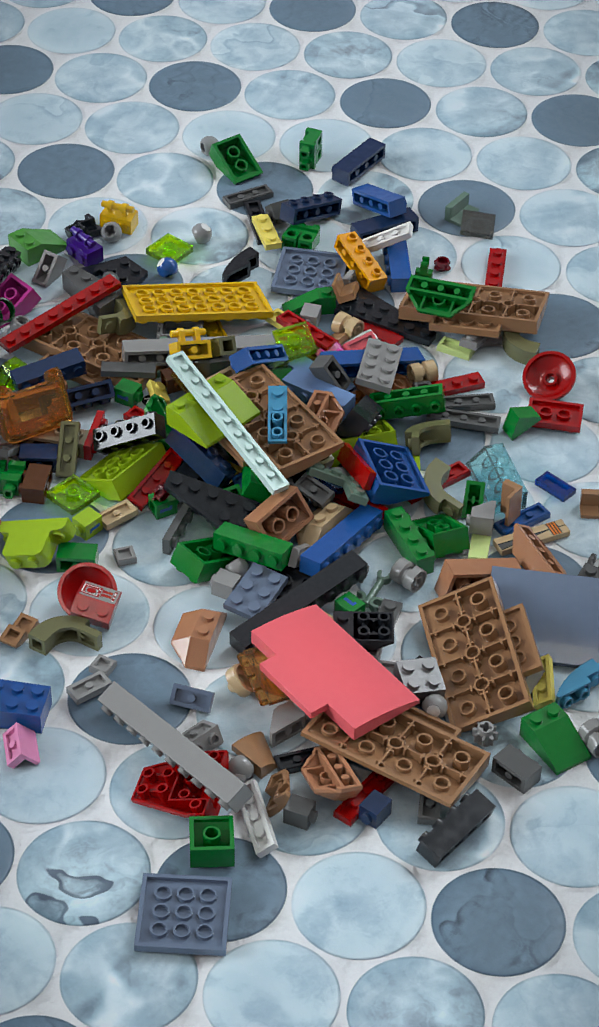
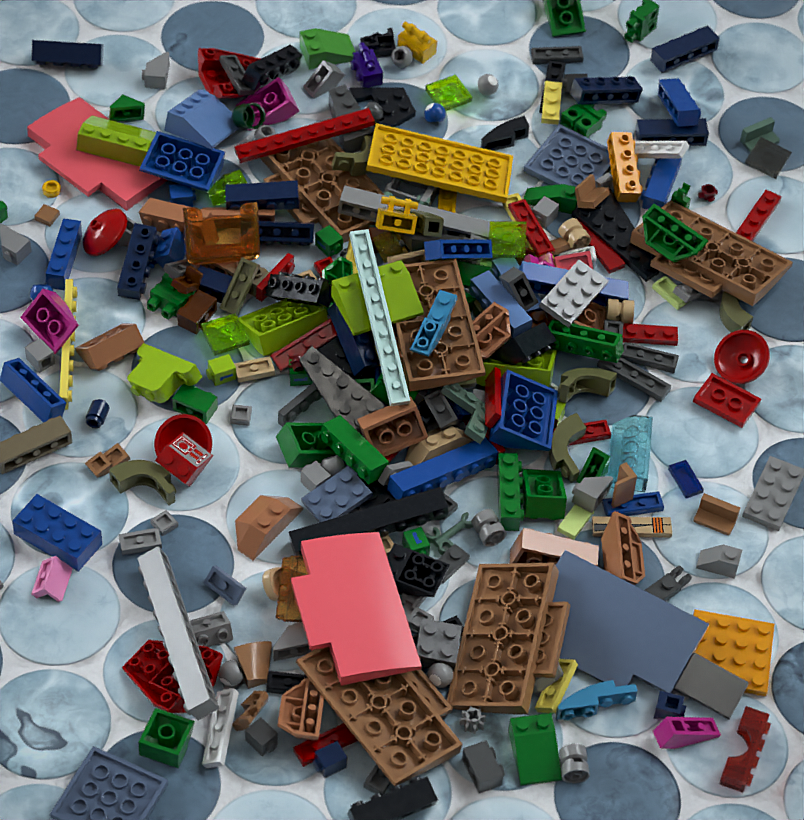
camera: 20 degrees right, 10 degrees up
(20, 456) = (189, 281): none -> reddish brown bracket
(128, 369) = (337, 217): dark grey tile -> none
(519, 420) = (687, 396): green slope -> none

